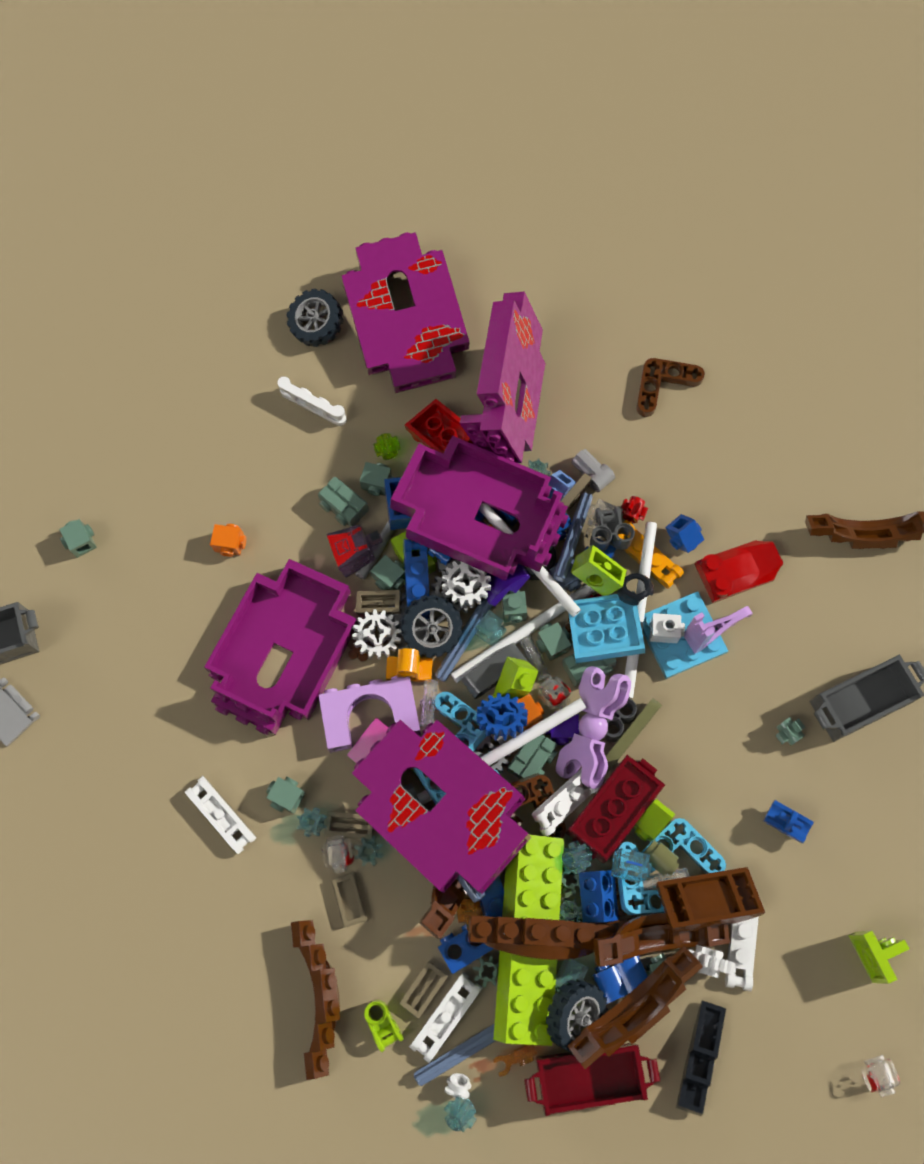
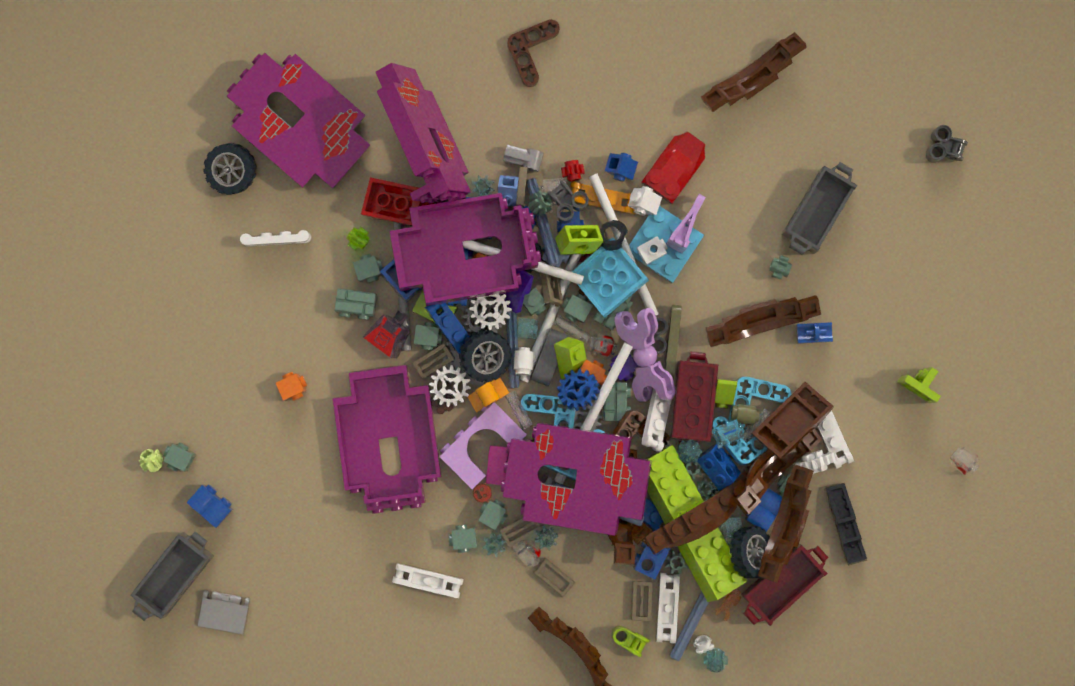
camera: 35 degrees left, 15 degrees up
(50, 523) = (151, 460): none -> yellowish green gear
(70, 600) = (210, 505): none -> blue brick
(332, 789) = (493, 513): none -> sand green brick
(336, 762) = (482, 493): none -> clear orange tile
(465, 656) = (523, 361): none -> white brick
(540, 605) = (551, 289): none -> dark tan tile
(582, 514) = (540, 203): none -> sand green gear
(687, 579) = (644, 201): none -> white brick
(741, 772) = (762, 318): none -> reddish brown piece

